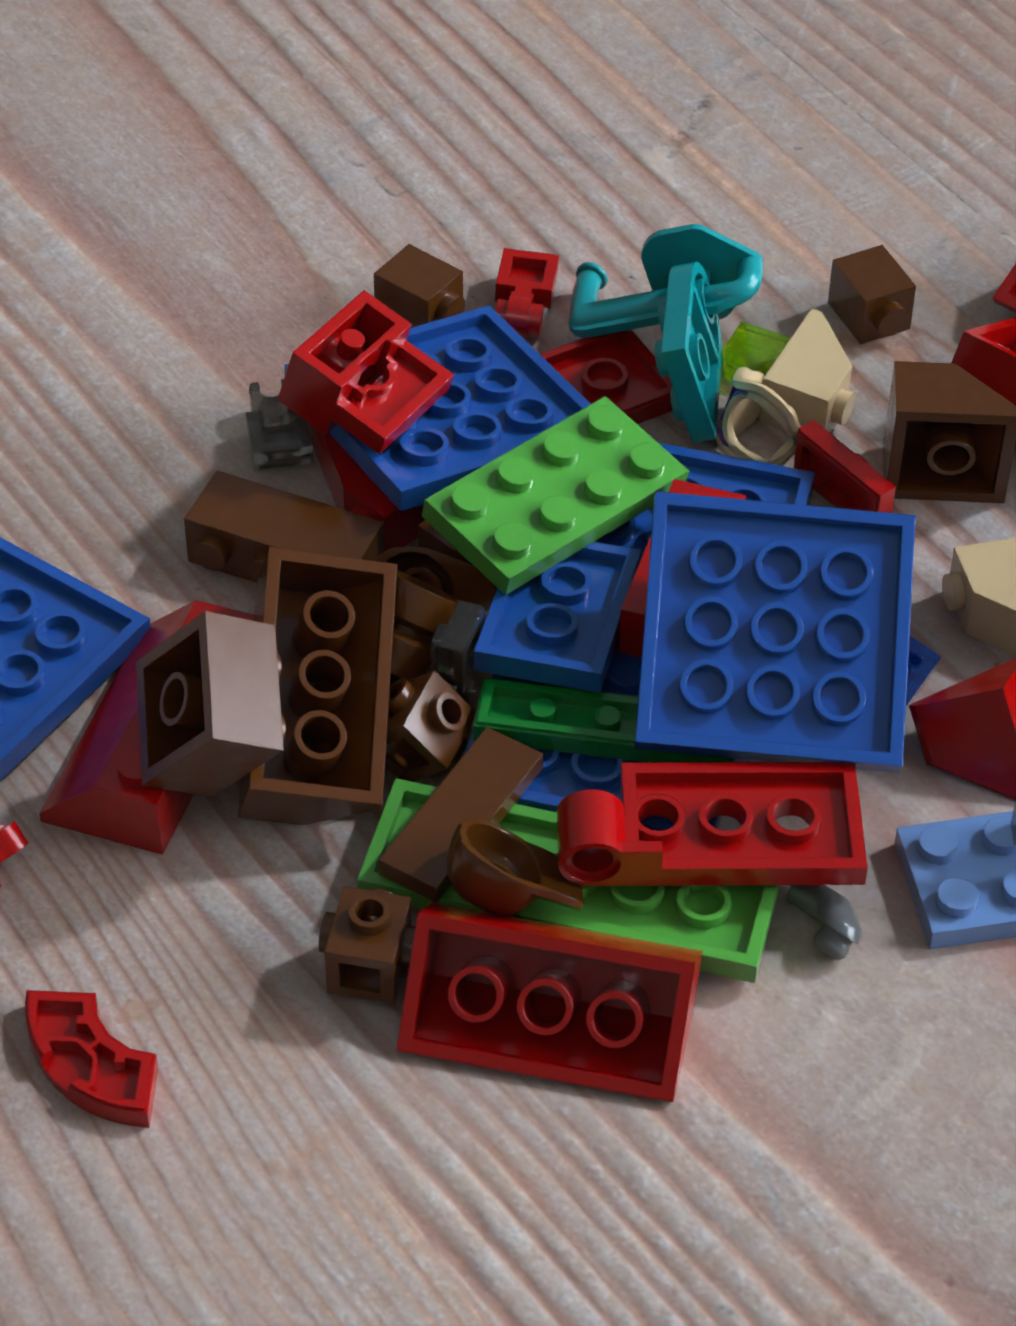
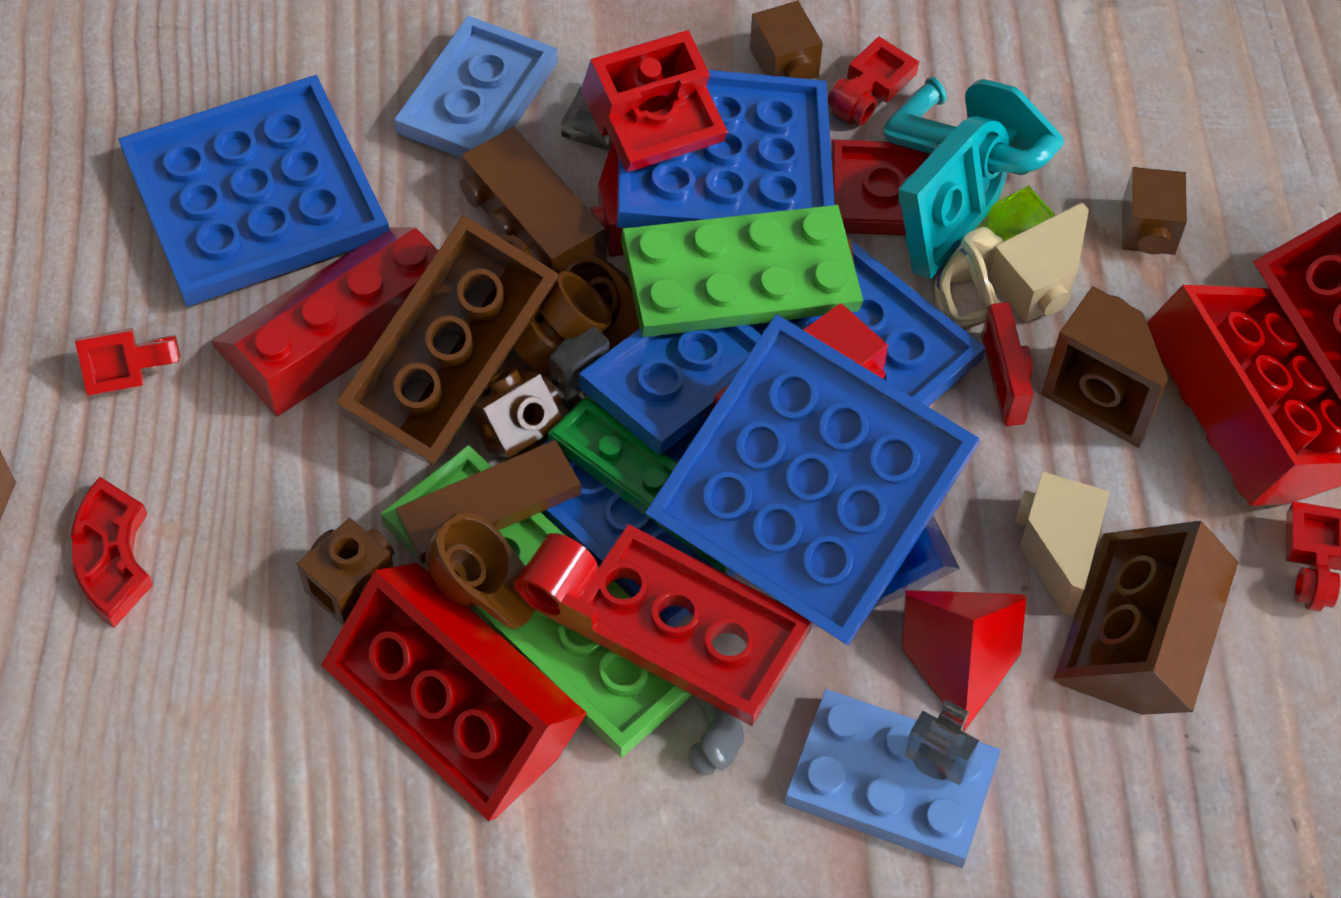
camera: 30 degrees right, 10 degrees up
(136, 462) = (476, 88): none -> medium blue plate
(209, 704) = (335, 323): reddish brown brick -> none

